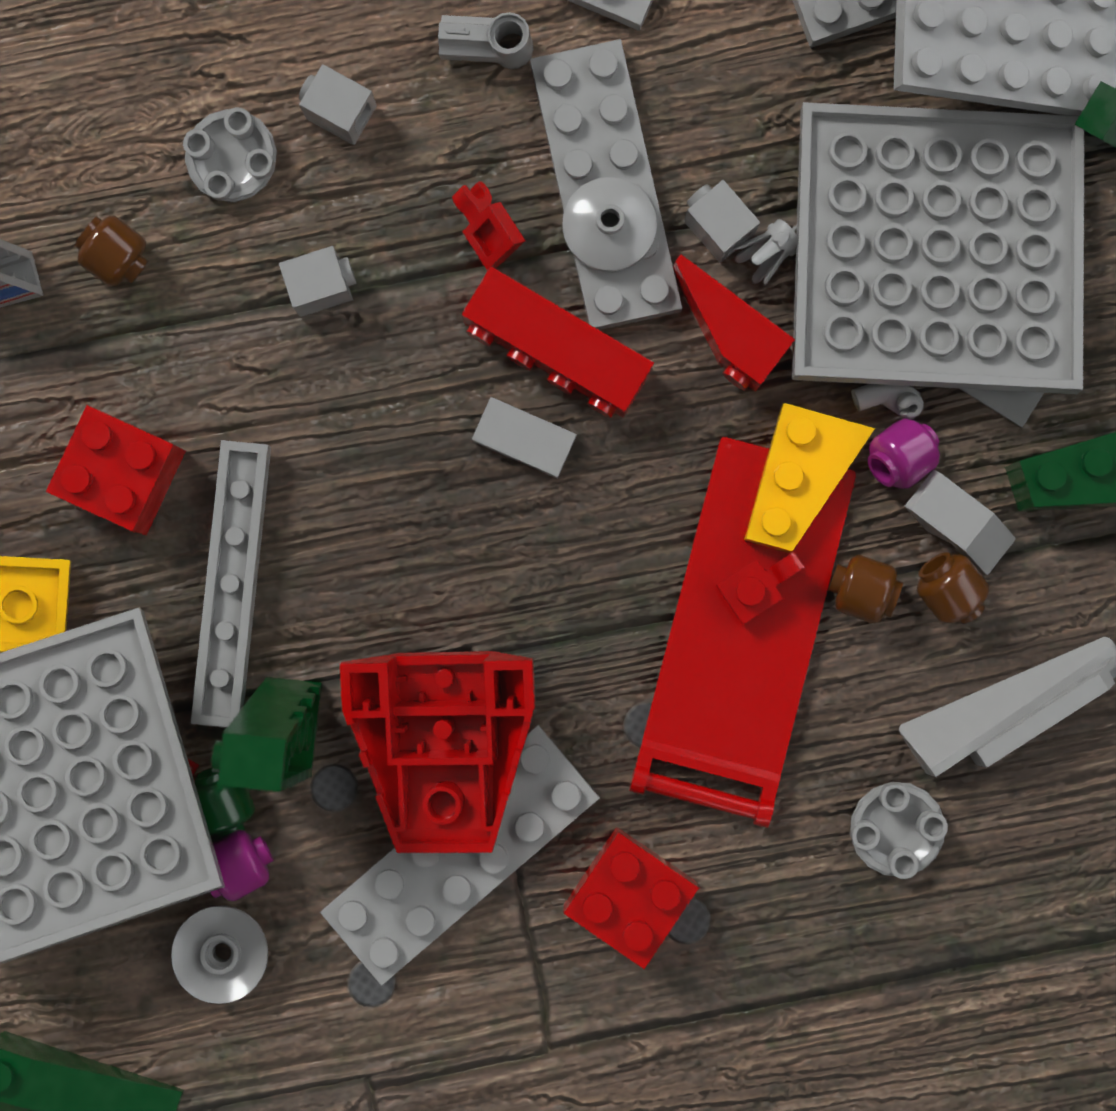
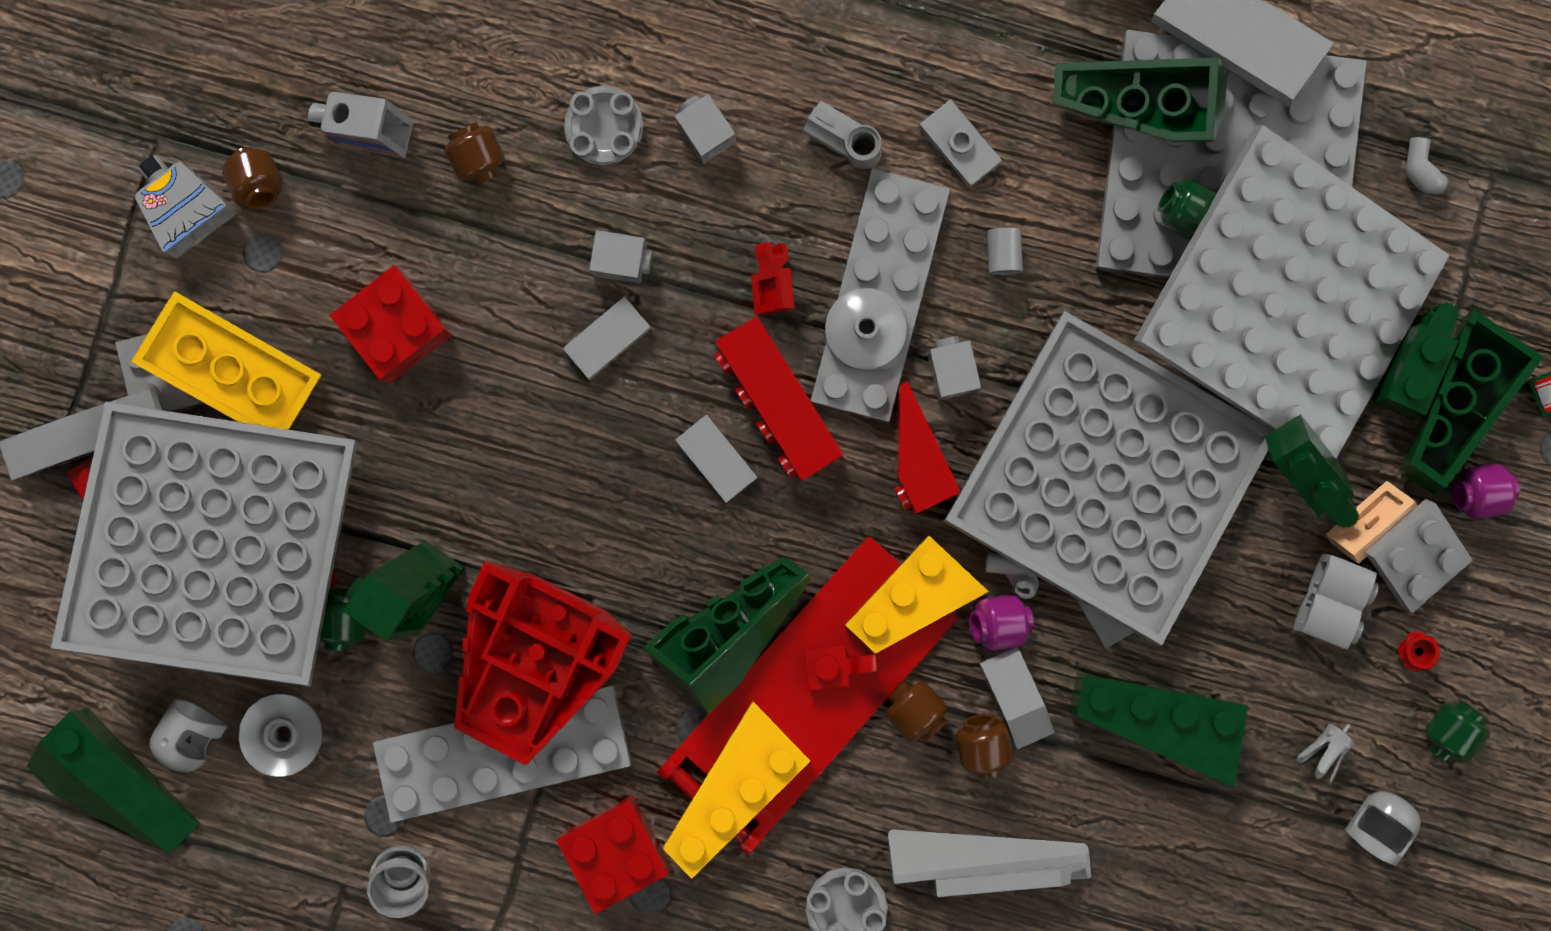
camera: 25 degrees right, 0 degrees up
(105, 1005) = (175, 726): none -> light grey helmet
(231, 583) = (434, 456): light grey plate -> none
(242, 864) = (332, 675): magenta head -> none
(347, 371) = (607, 338): none -> light grey tile
(432, 1057) = (400, 896): none -> light grey helmet
(627, 625) = (720, 644): none -> dark green wedge
(710, 74) = (1005, 251): none -> light grey piece
(722, 760) = (740, 784): none -> yellow wing
(769, 249) = (979, 411): light grey piece -> none

